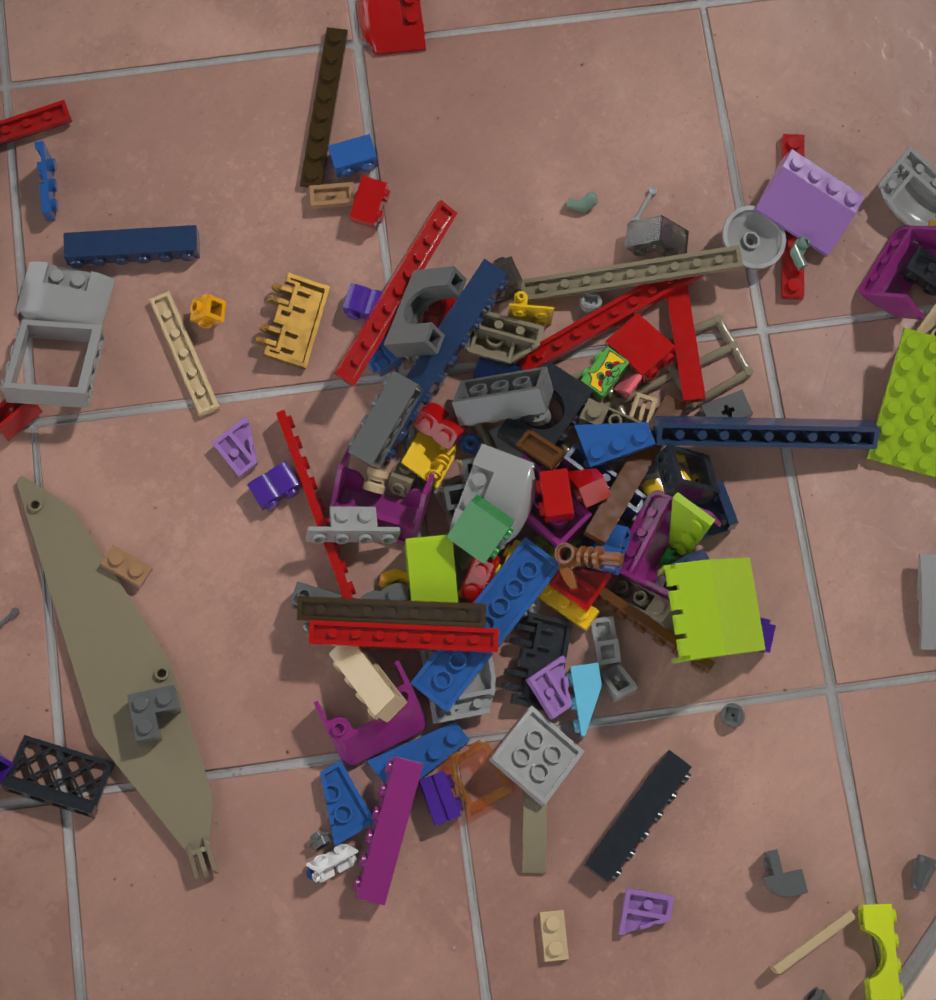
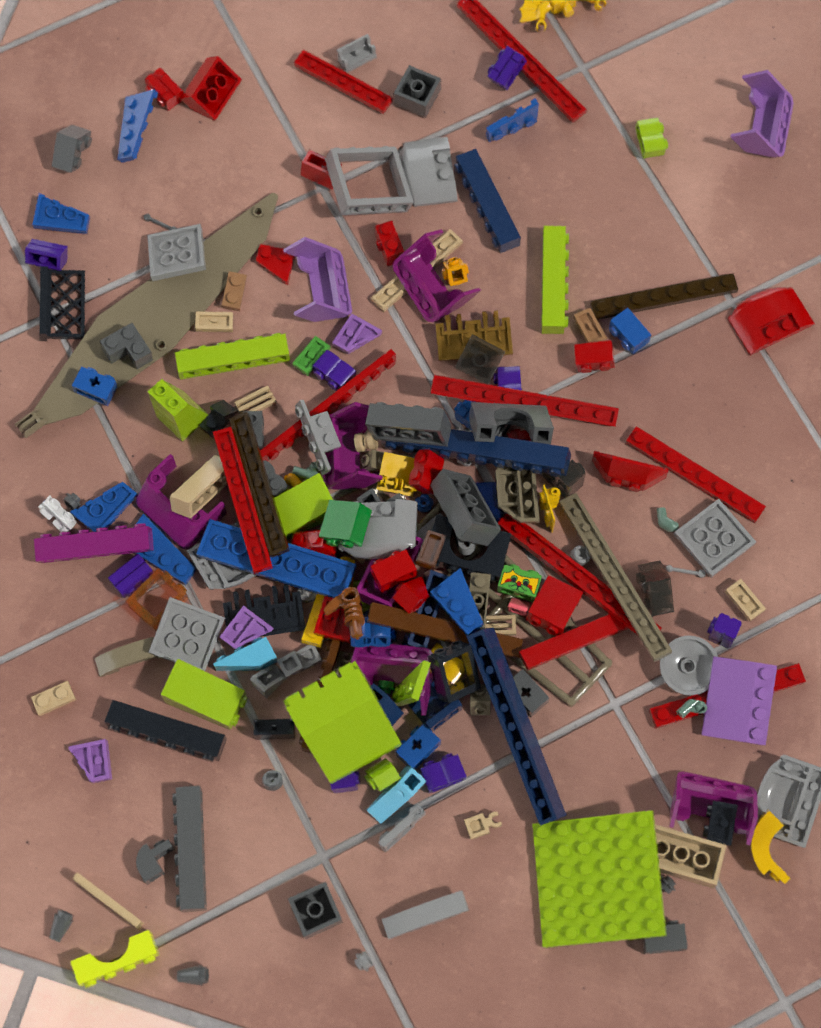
camera: 75 degrees right, 5 degrees down
(50, 616) = (176, 252): none -> light grey plate
(107, 505) = (275, 261): none -> red wing
(129, 46) = (651, 138): none -> lime brick
(140, 370) = (388, 242): none -> red brick
(157, 602) = (214, 322): none -> tan plate
(158, 457) = (327, 280): none -> medium lavender windscreen
(199, 764) = (100, 393): none -> blue brick
(210, 595) = (232, 356): none -> lime brick
(211, 349) = (423, 282): none -> magenta windscreen
(244, 505) = (310, 355): none -> bright green plate
(259, 211) = (553, 280): none -> lime brick
(259, 678) = (176, 409): none -> lime slope
(280, 637) = (218, 418): none -> black slope
(282, 567) = (272, 401): none -> tan tile
(328, 322) = (479, 359): none -> clear smoke brick
(386, 558) = (306, 473): none -> sand green arm
(515, 220) = (628, 473): none -> red wedge
(540, 155) = (695, 474): none -> red plate
(614, 758) = (203, 695): none -> lime slope
(620, 161) = (714, 538): none -> light grey plate
(674, 693) = (274, 729): none -> black hinge
(698, 158) = (745, 600): none -> tan plate
(721, 462) = (480, 701): none -> dark tan bracket
(729, 188) = (723, 630): none -> dark purple brick
(748, 534) = (428, 743): none -> blue brick
(773, 592) = (381, 775): none -> lime brick
(782, 830) = (191, 849): none -> dark grey brick
(784, 530) = (443, 773): none -> dark purple brick
(793, 585) = (396, 794): none -> medium azure slope
(829, 592) = (401, 828): none -> light grey hinge
(852, 514) = (479, 825): none -> tan plate
(894, 714) = (315, 910): none -> dark grey brick

